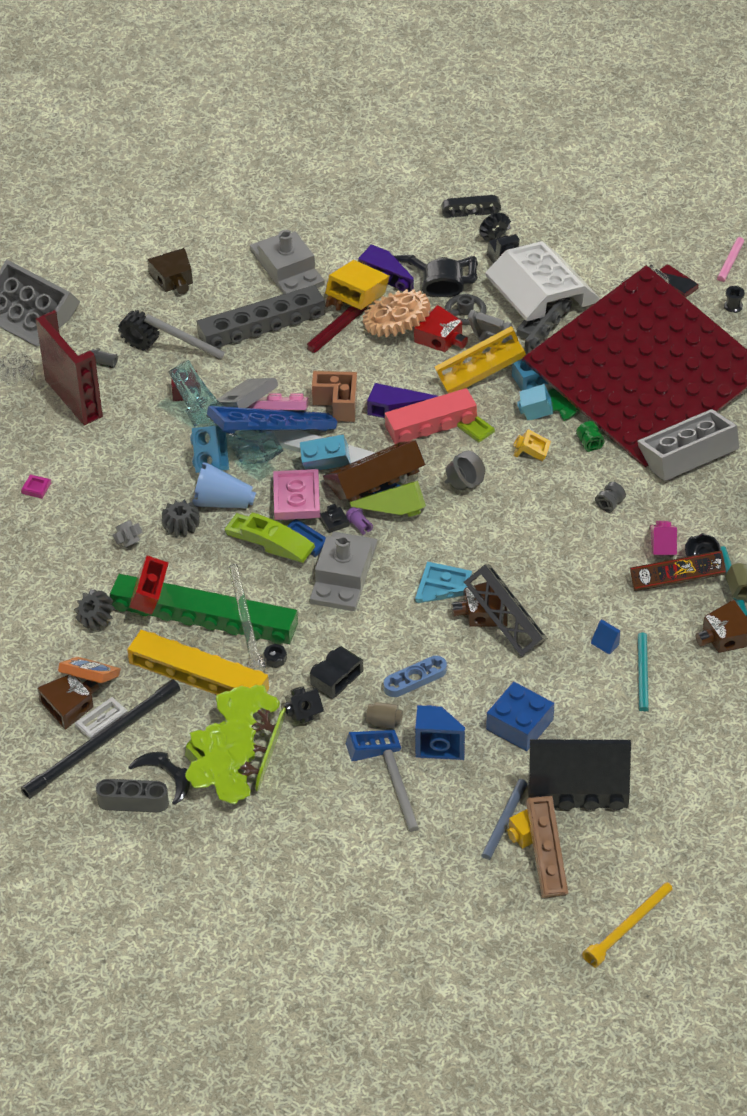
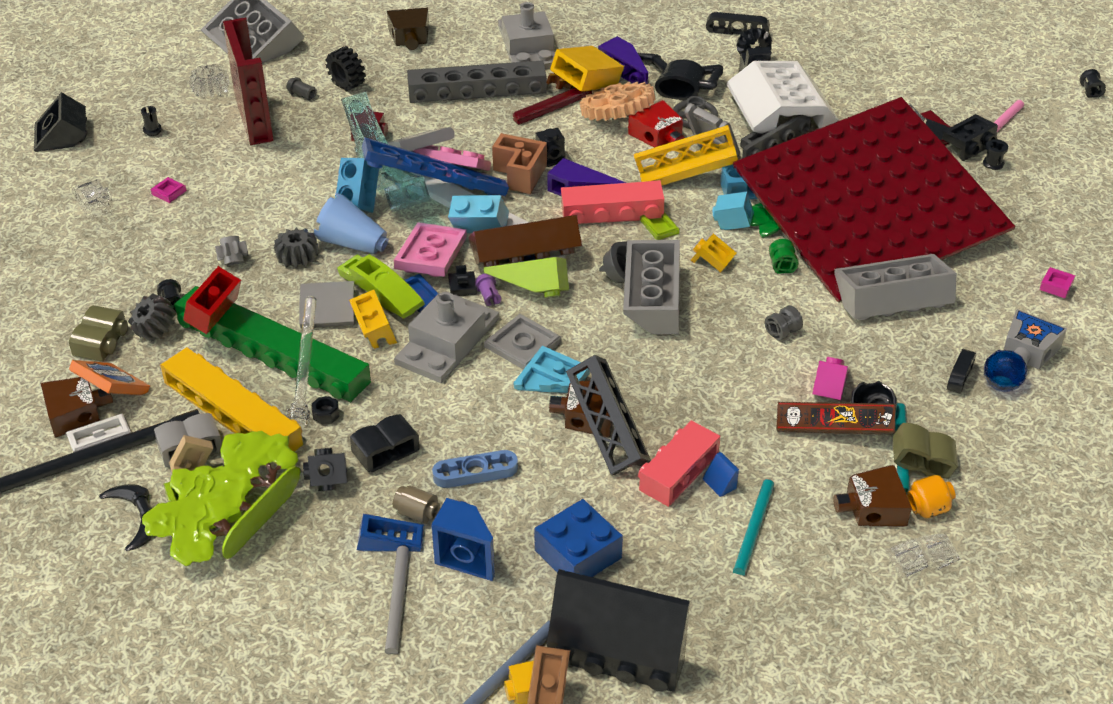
camera: 15 degrees right, 5 degrees down
(54, 633) = (98, 333): none -> olive brick
(95, 583) = (170, 290): none -> black bush
(132, 795) = (79, 527): dark grey beam -> none
(179, 706) = (198, 426): none -> light grey brick
(184, 336) = (385, 80): light grey bar -> none
(191, 719) = (191, 453): none -> tan bracket
(221, 557) = (331, 305): none -> light grey slope
(278, 568) = (372, 318): none -> yellow hinge
(361, 366) = (555, 145): none -> black brick
(406, 560) = (521, 340): none -> light grey tile
(497, 486) = (653, 285): none -> light grey slope
(570, 635) = (678, 463): none -> coral brick
(710, 284) = (971, 135): none -> black bracket

